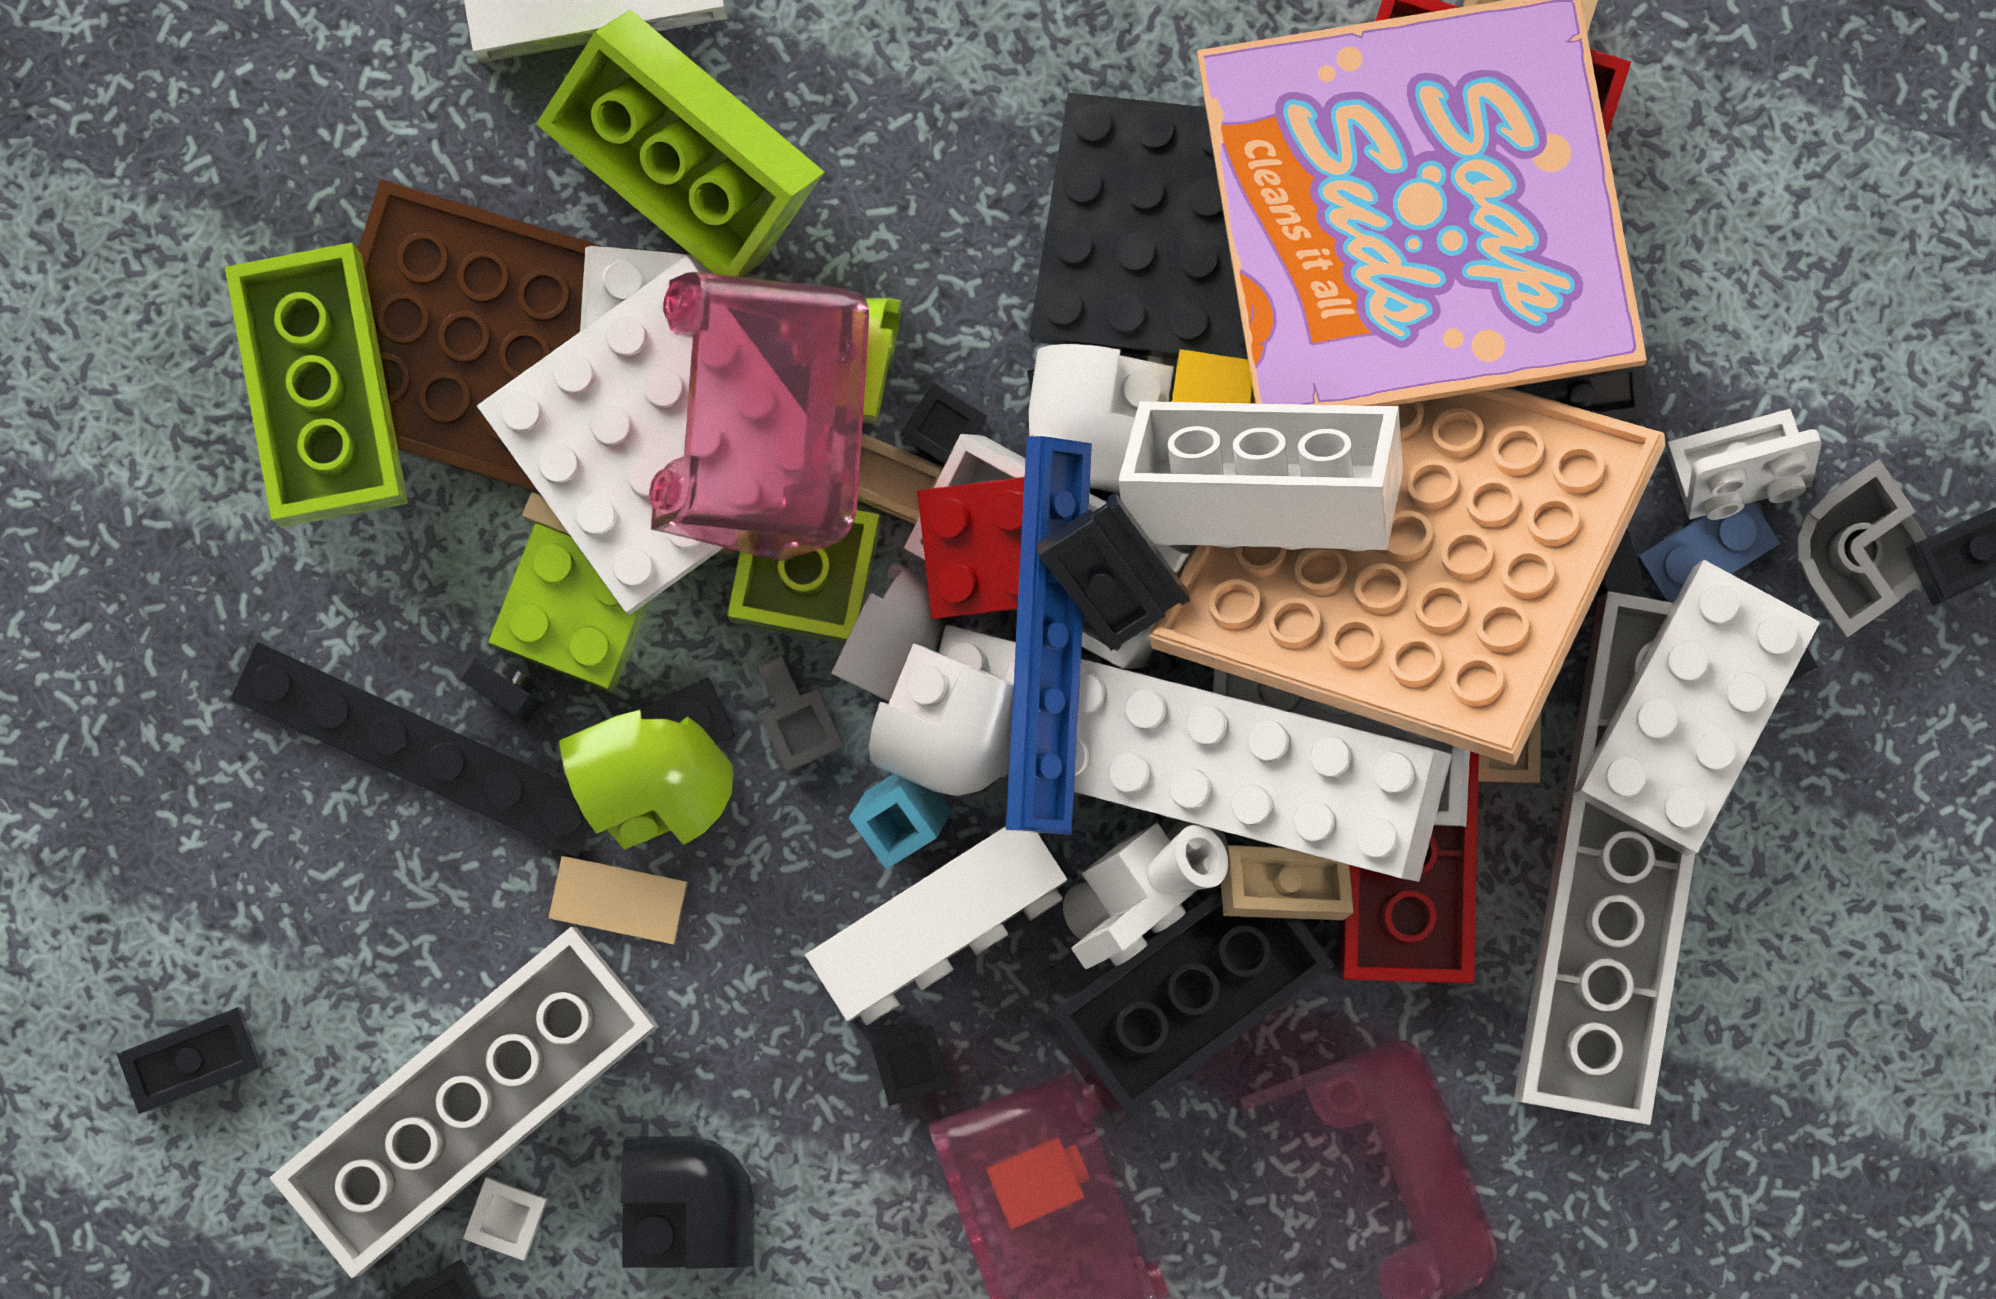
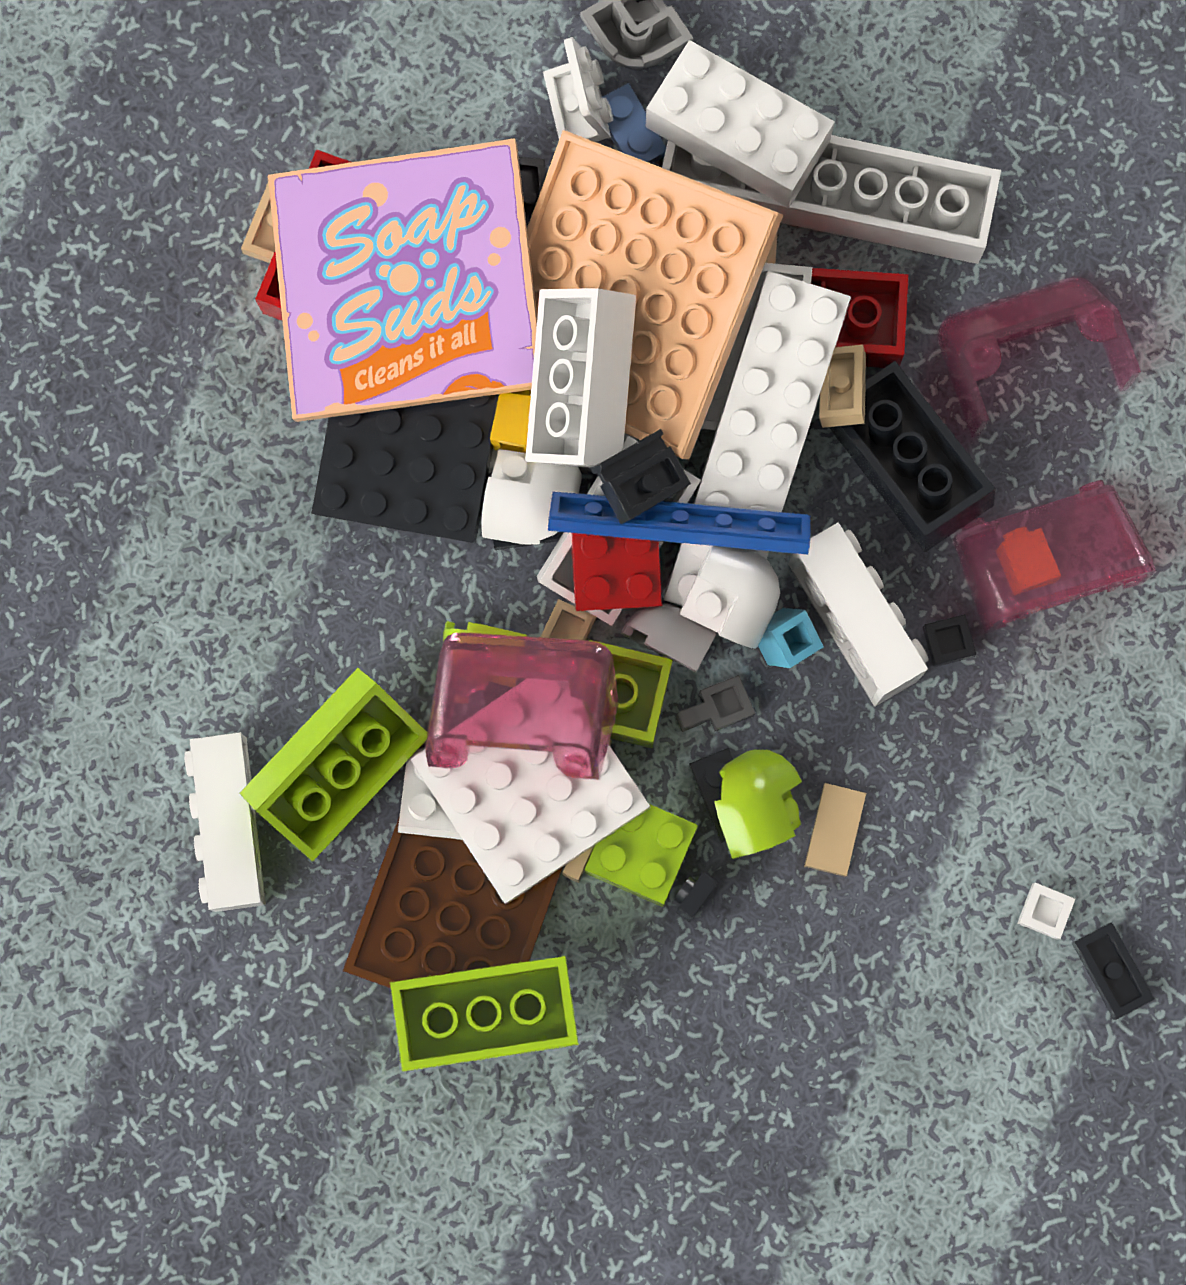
camera: 85 degrees left, 5 degrees down
(189, 1060) = (937, 1122): black plate -> none
(413, 748) = (729, 963): black plate -> none
(464, 1102) = (971, 934): white brick -> none
(684, 1205) = (1039, 792): black brick -> none
(940, 422) = (529, 603): black plate -> none
(1141, 889) = (842, 479): white brick -> none

